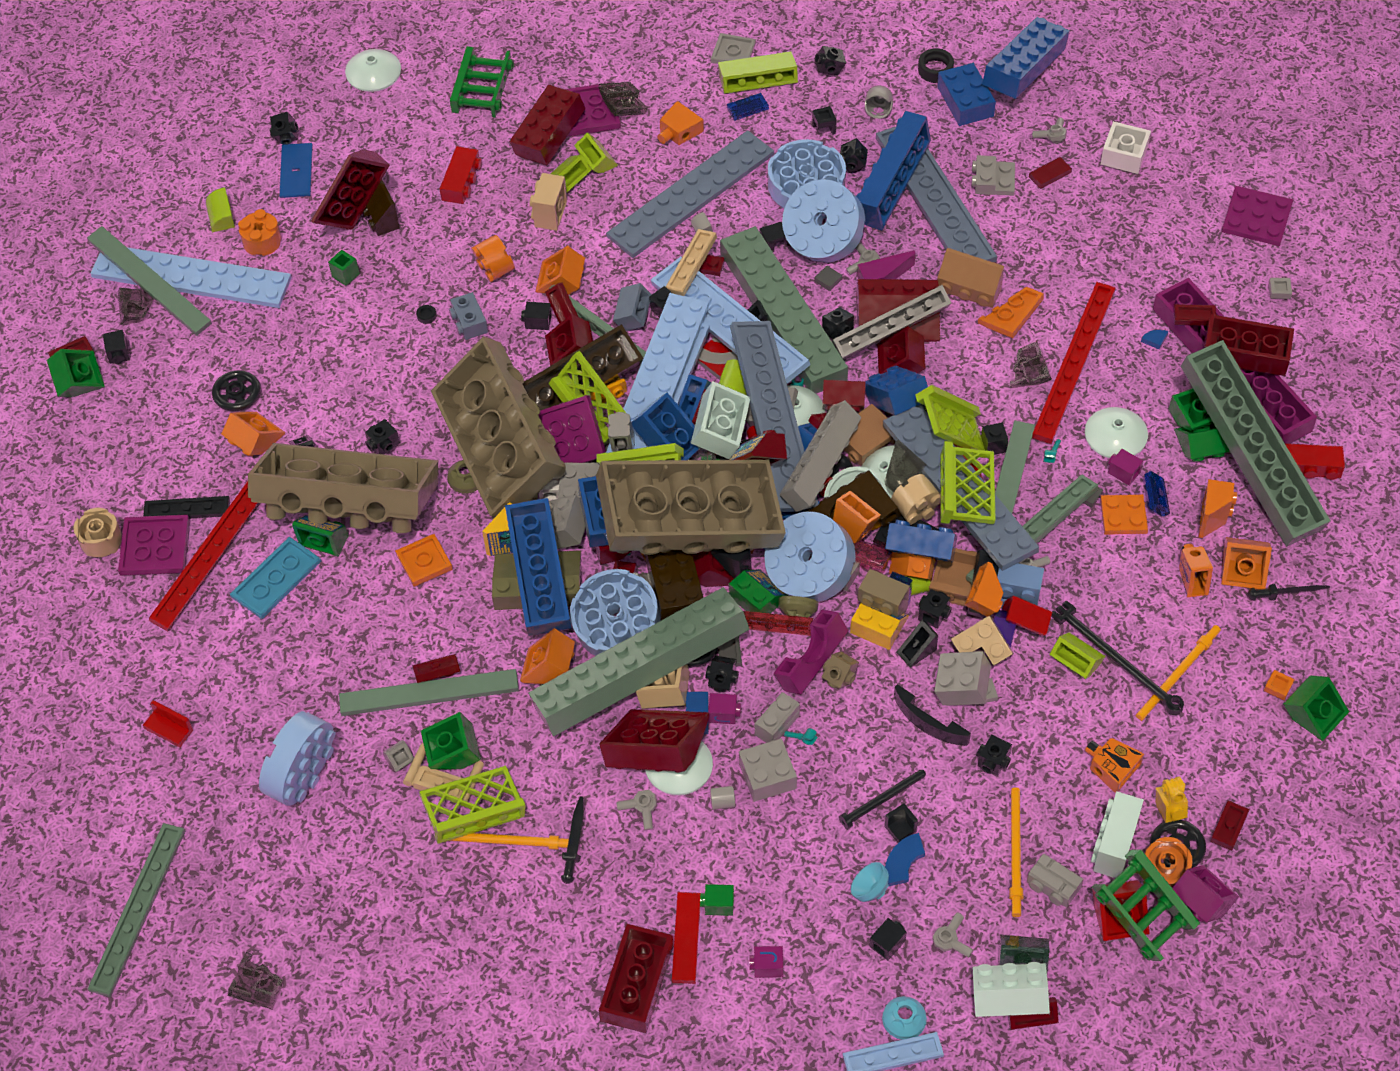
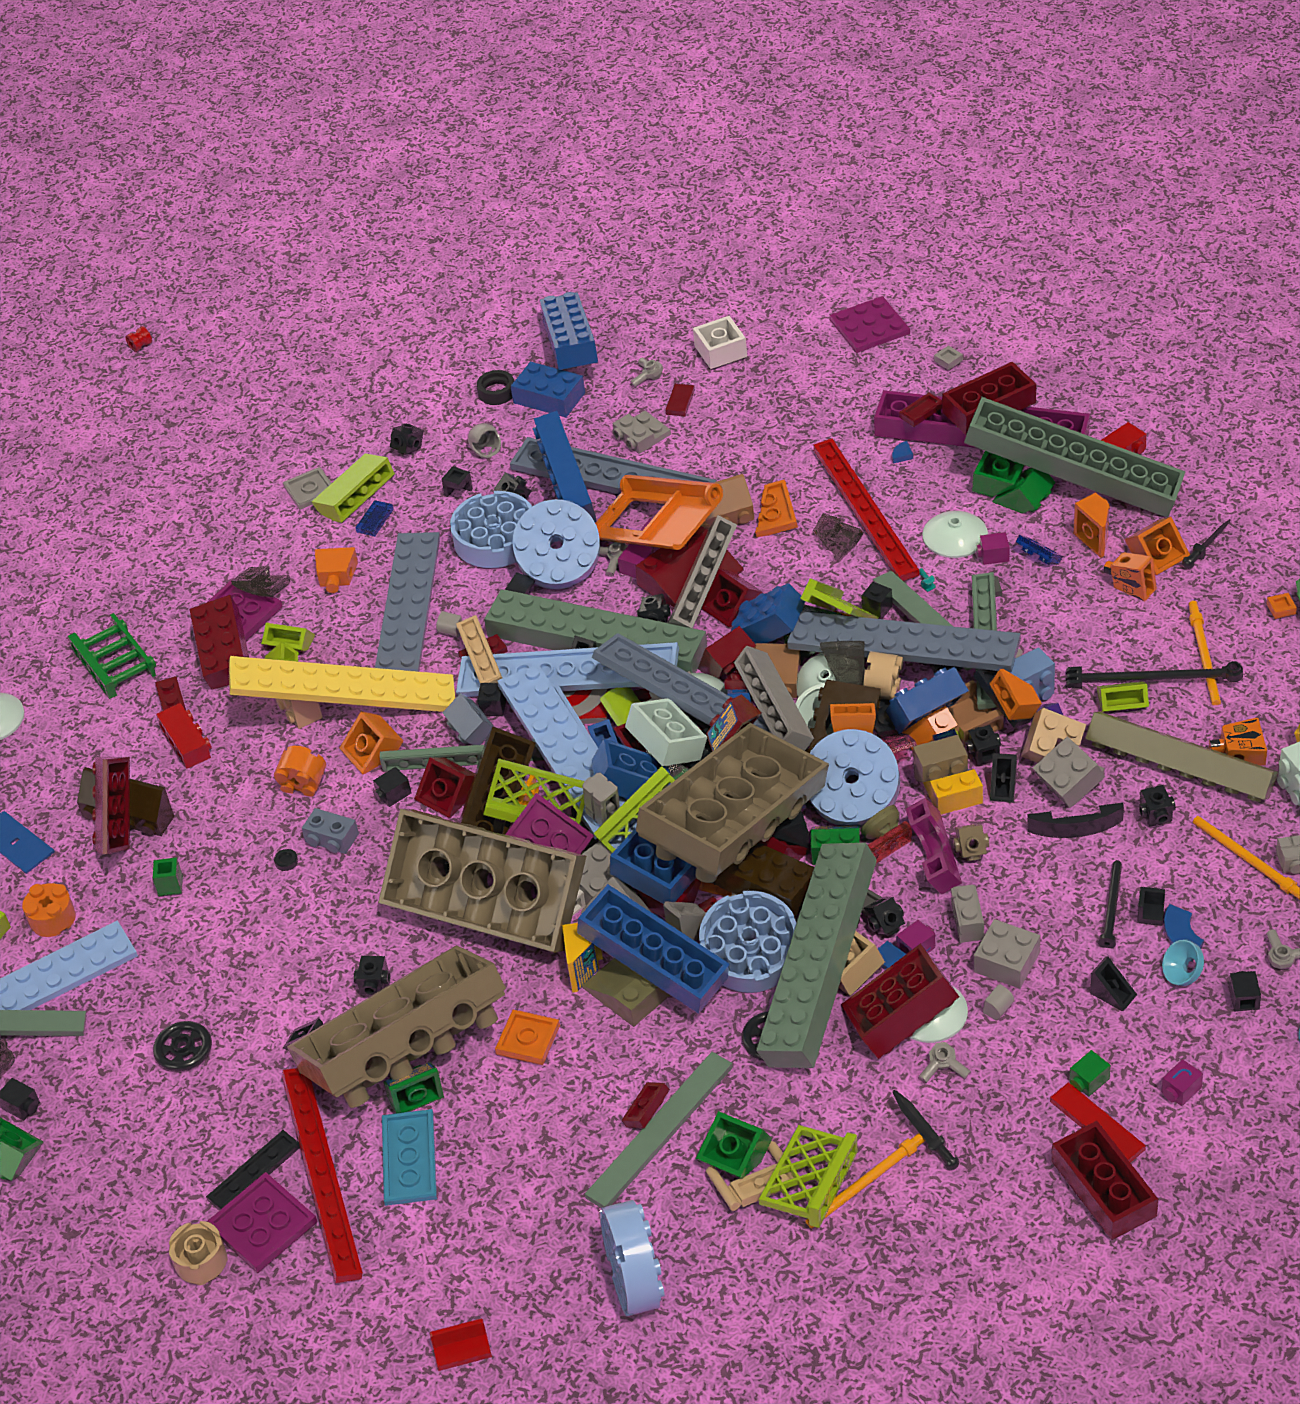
camera: 40 degrees left, 10 degrees down
(251, 432) = (242, 1065): orange slope -> none
(398, 755) = (698, 1195): light grey brick -> none
(460, 482) = (491, 950): olive piece -> none
(486, 138) = (169, 692): none -> dark red plate
(548, 658) = (733, 1019): orange slope -> none
(560, 302) = (405, 760): dark red tile -> none
(575, 215) = (340, 684): none -> light yellow plate
(595, 560) = (684, 917): none -> light grey slope
(806, 854) = (1111, 985): none -> black slope
(807, 738) = (1003, 910): teal hand -> none
(828, 278) = (600, 589): dark grey tile -> none
(916, 265) = (684, 510): none -> orange piece
(949, 479) = (907, 640): lime fence -> none
(1027, 615) = (1060, 692): red panel -> none
(1057, 735) = (1181, 755): none -> olive brick
(1124, 514) = (1031, 581): orange plate -> none

